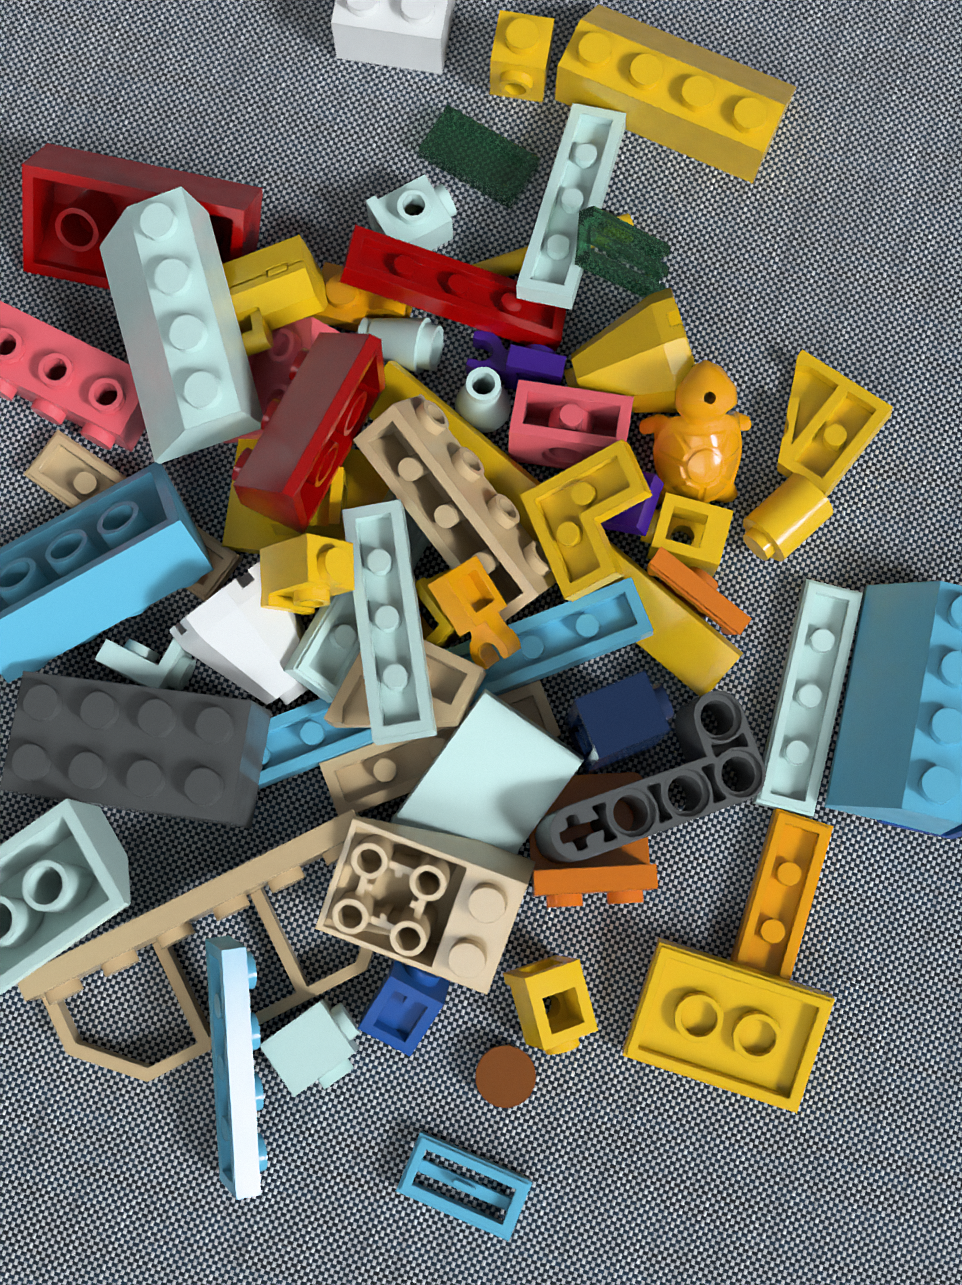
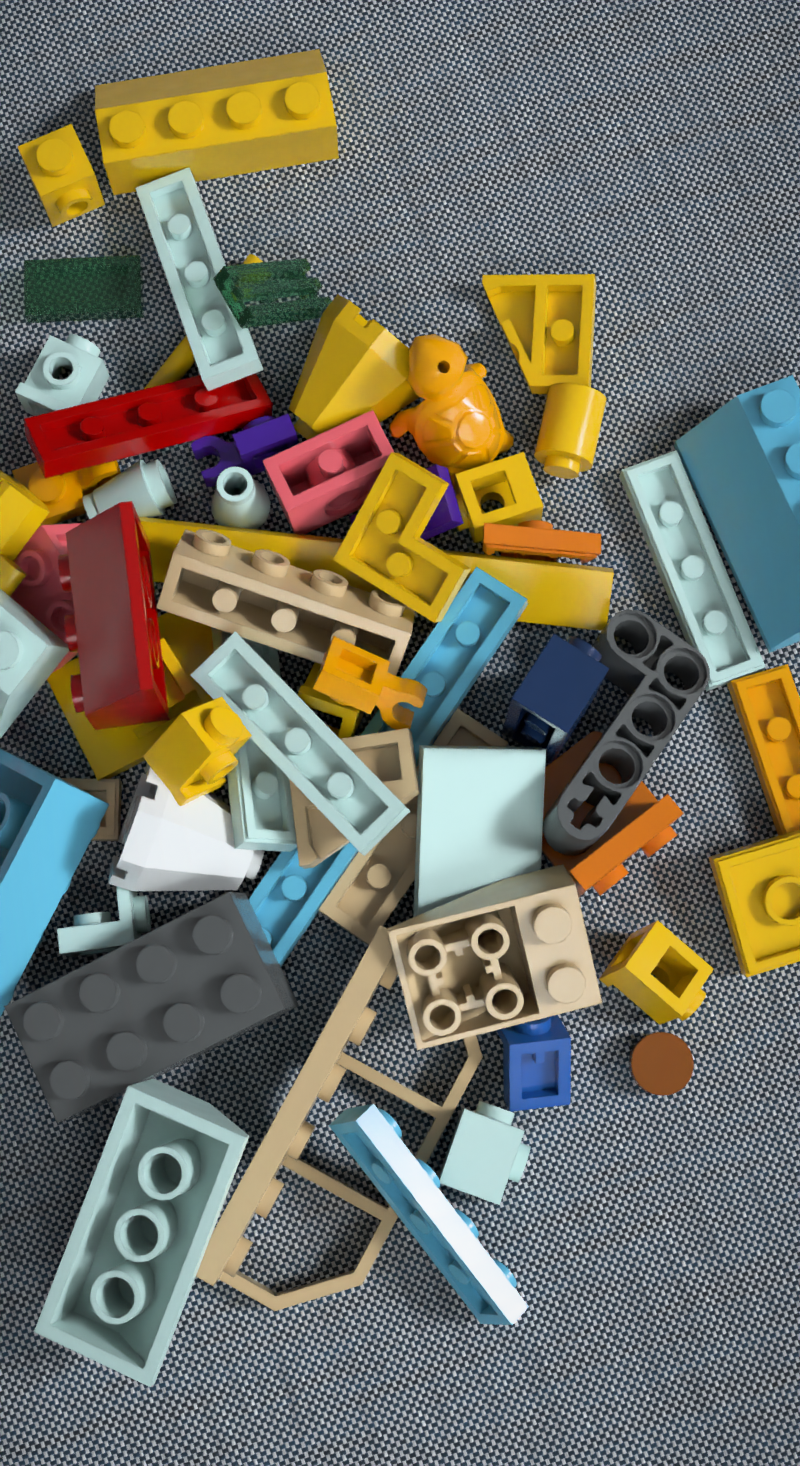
camera: 35 degrees left, 0 degrees up
(463, 1212) = (742, 1168): medium azure tile -> none

